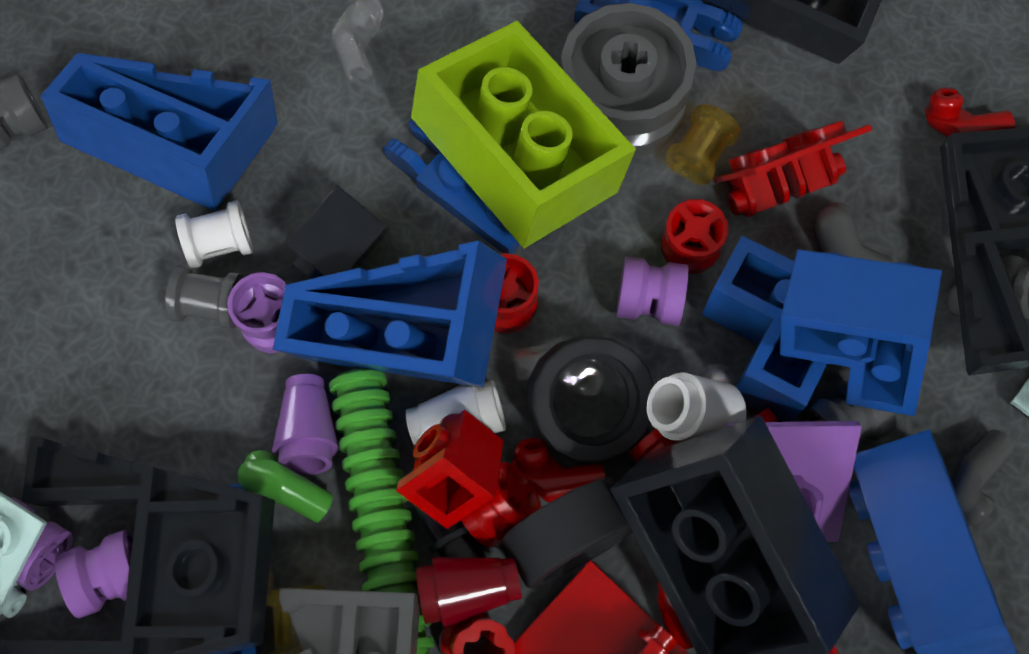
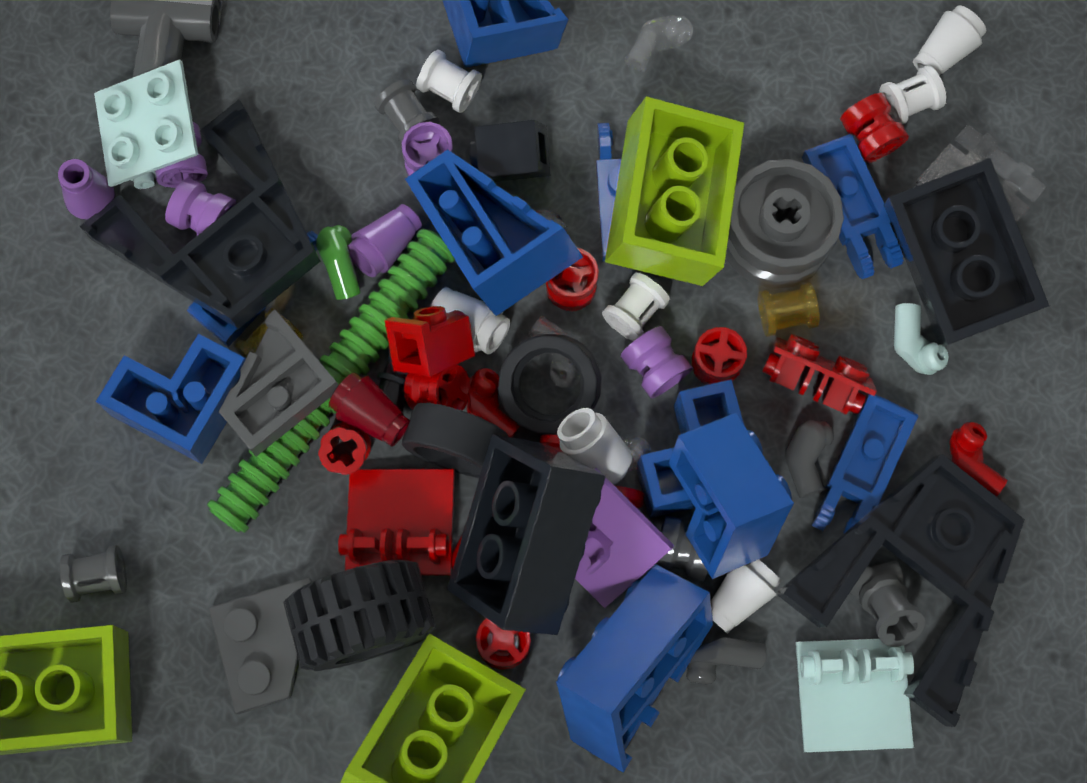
camera: 45 degrees right, 5 degrees up
(583, 263) = (636, 306): none -> white bush
(821, 81) = (912, 346): none -> light aqua arm
(897, 200) = (867, 459): none -> blue hinge
(939, 406) = (743, 594): none -> white cone

